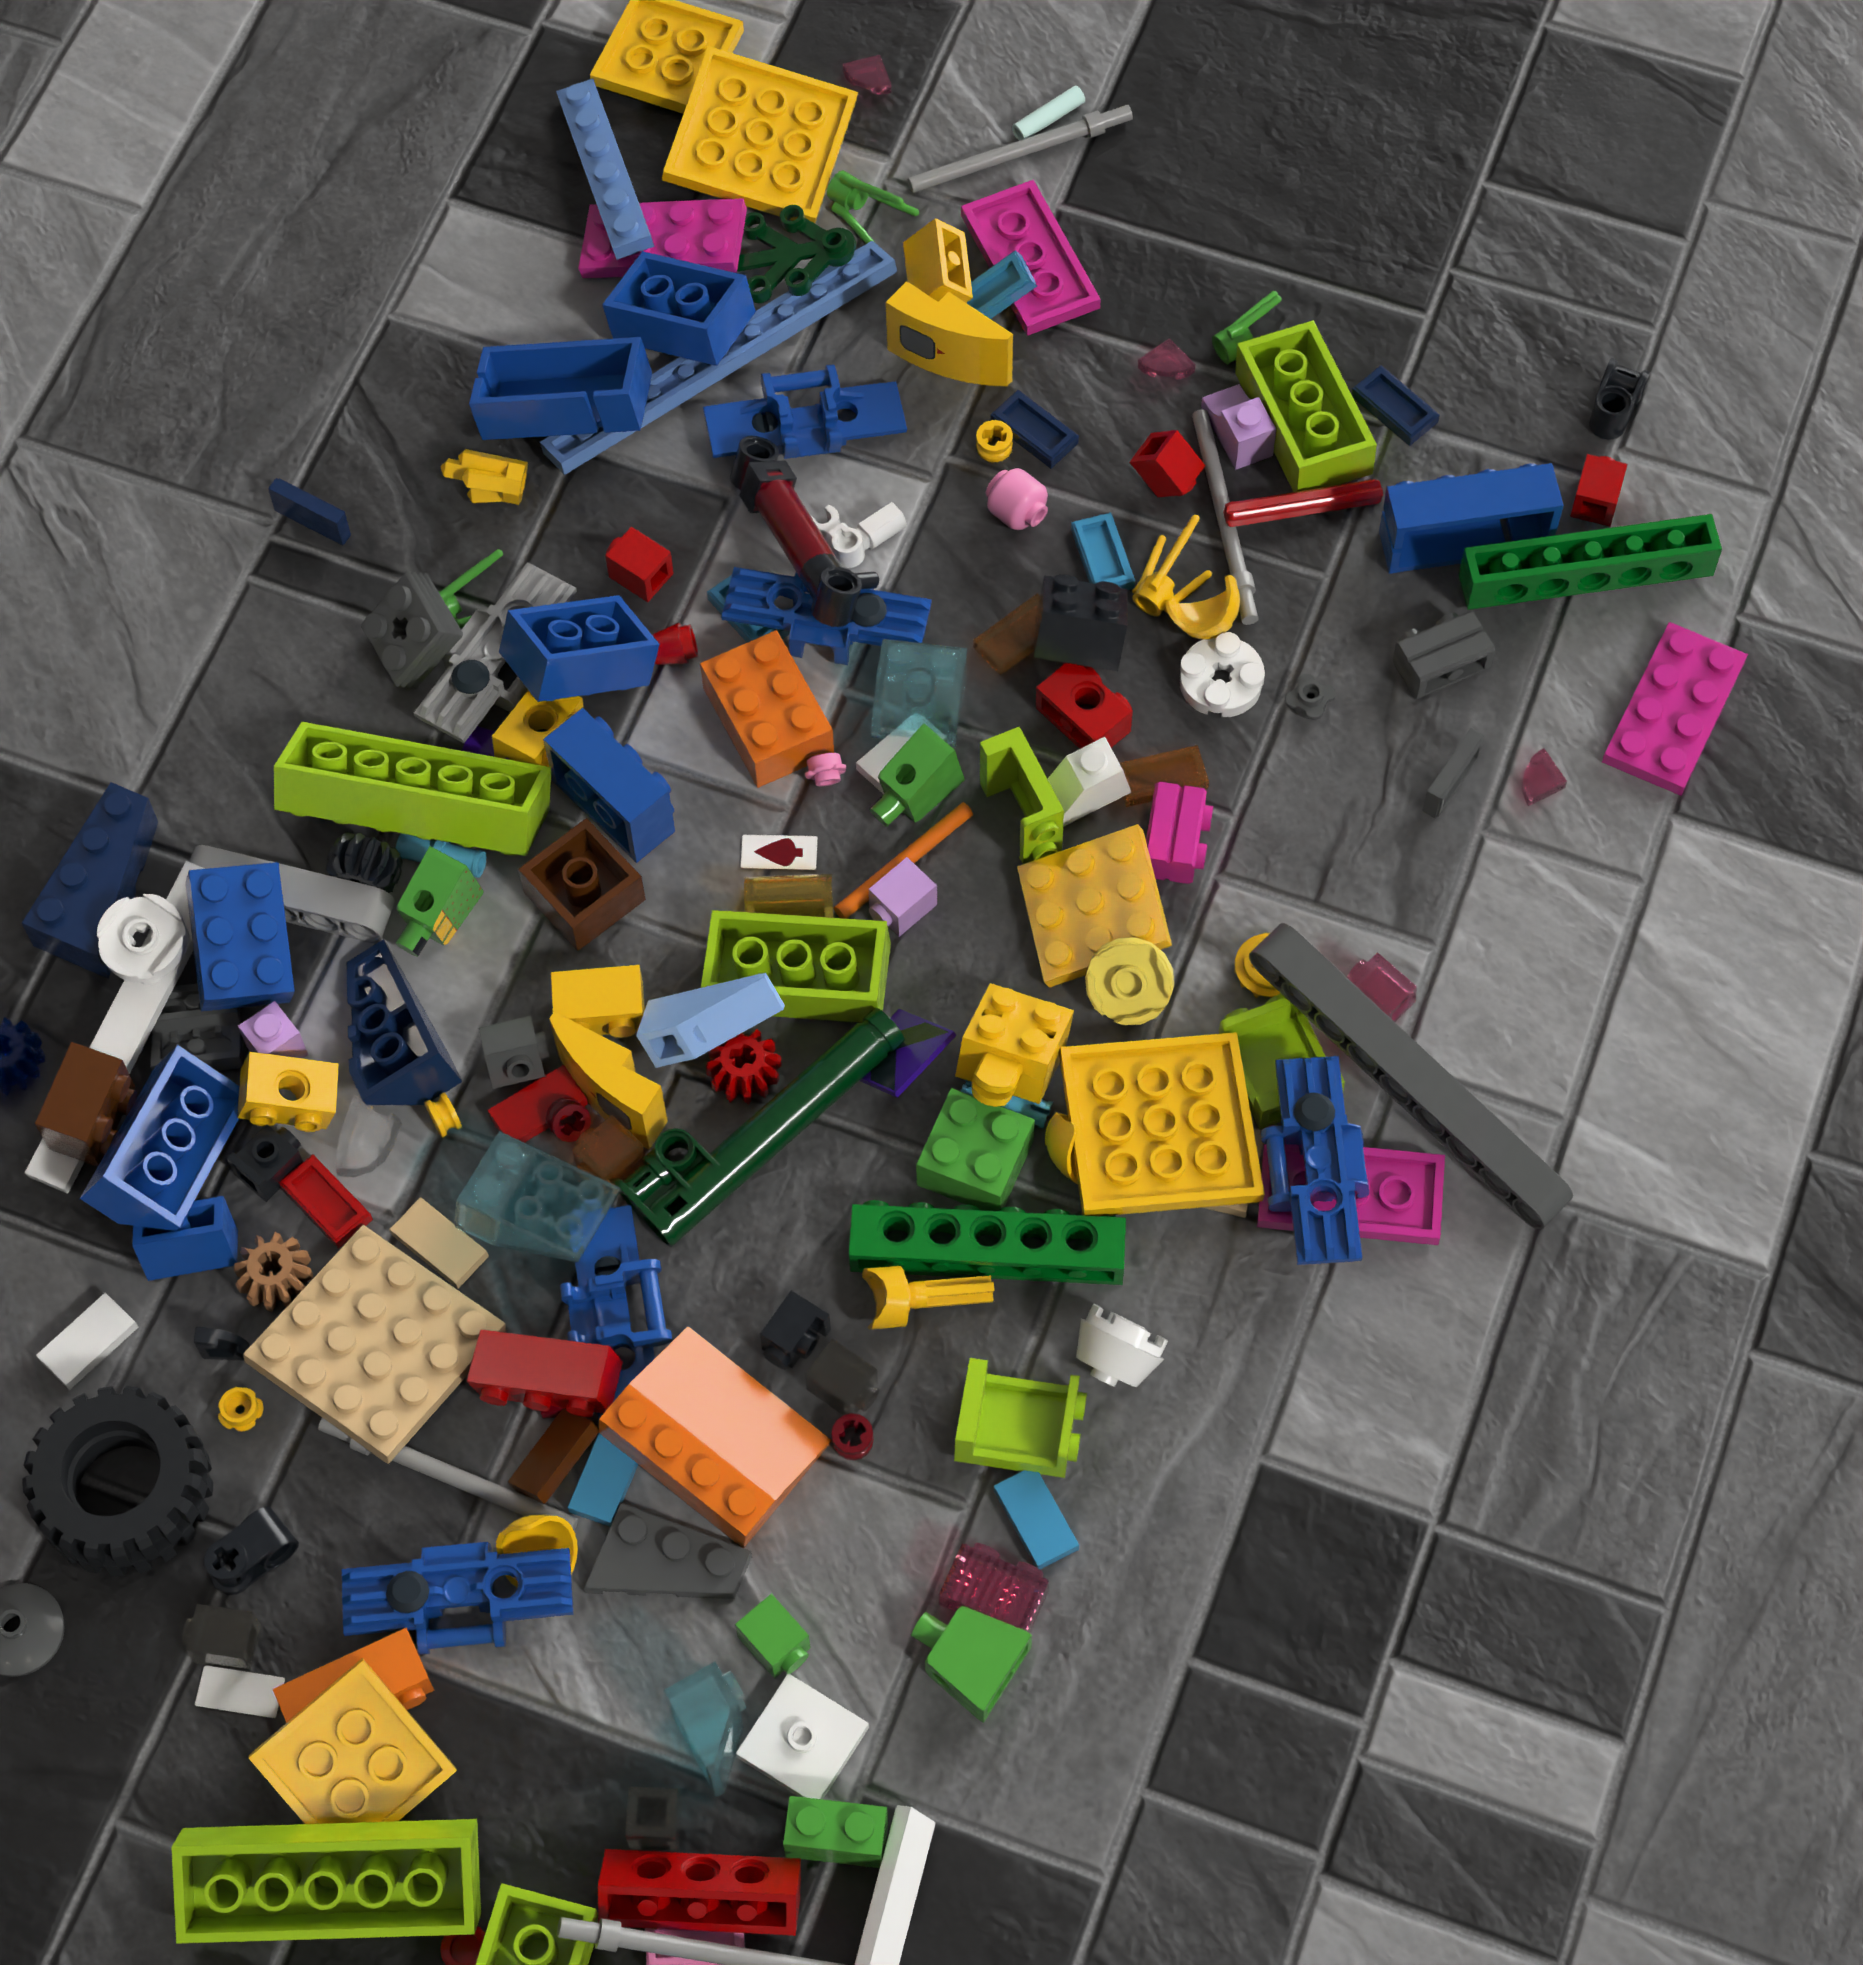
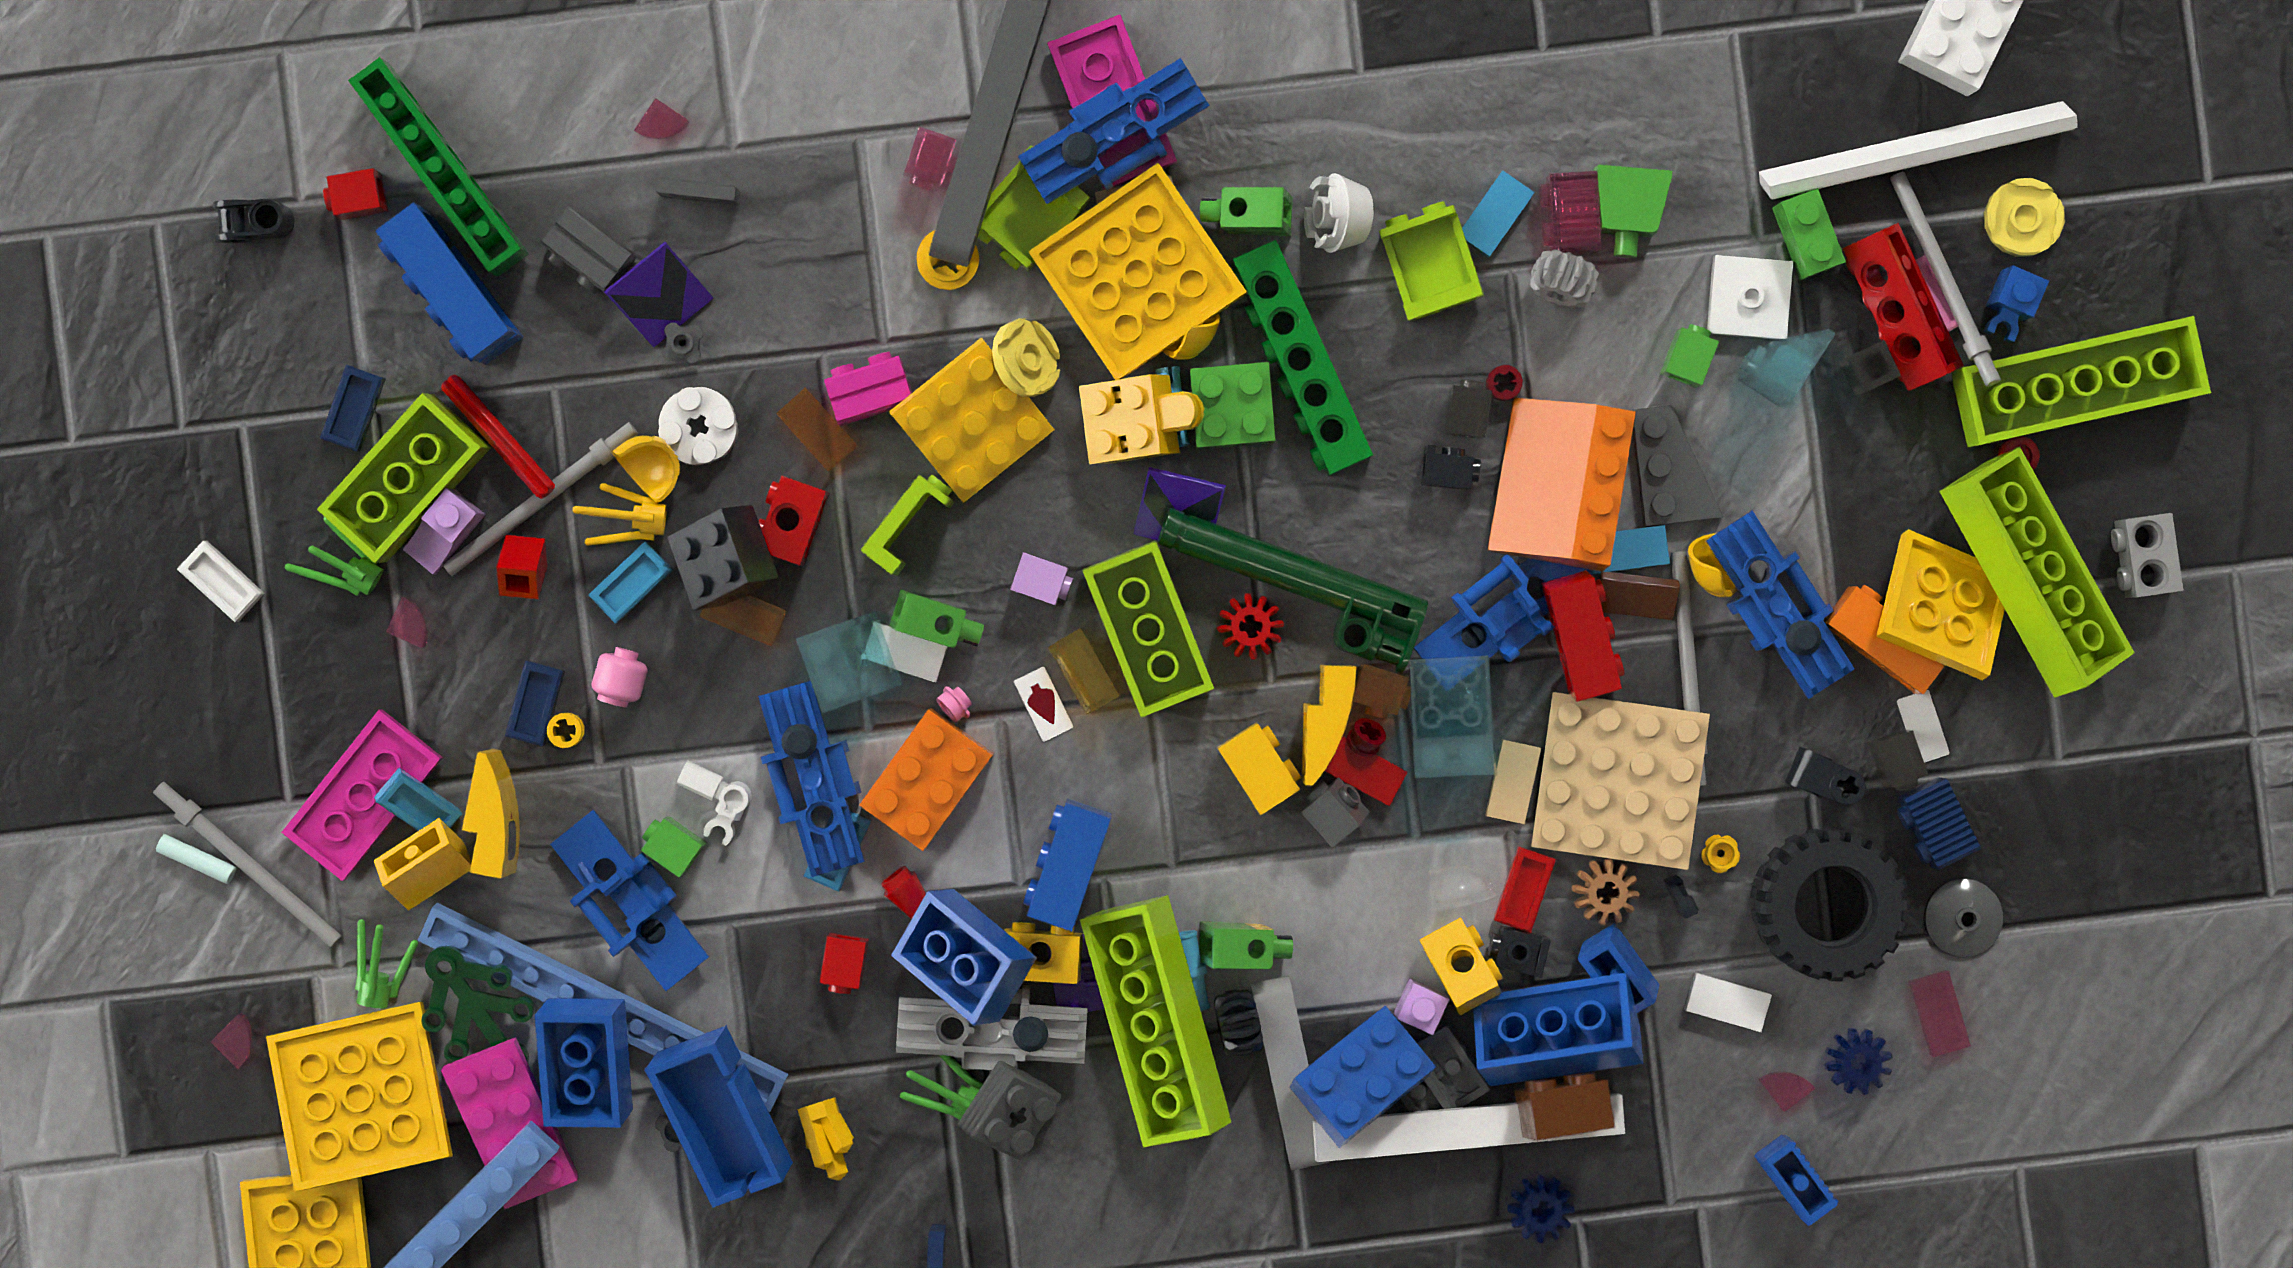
camera: 115 degrees left, 25 degrees up
(92, 877) = (1362, 1230): dark blue wedge -> none
(129, 1644) = (1937, 823): none -> dark blue brick
(139, 914) = (1417, 1171): white plate -> none
(392, 1039) = (1372, 909): dark blue wedge -> none
(443, 1115) = (1411, 837): yellow bush -> none
(582, 884) = (1165, 838): reddish brown brick -> none
(700, 1019) = (1243, 675): light blue slope -> none
(769, 489) = (722, 889): black piece -> none
(833, 474) = (672, 845): none -> bright green brick
(896, 1296) = (1382, 404): yellow piece -> none
(914, 852) = (1002, 598): orange bar -> none
(927, 1540) = (1564, 279): none -> light grey gear
(1088, 780) = (865, 483): white slope -> none
(1164, 1266) = (1266, 214): none -> bright green torso
(1290, 237) = (220, 581): none -> white tile
(1369, 692) = (658, 293): none -> piece
(1674, 708) = (537, 41): dark pink plate -> none

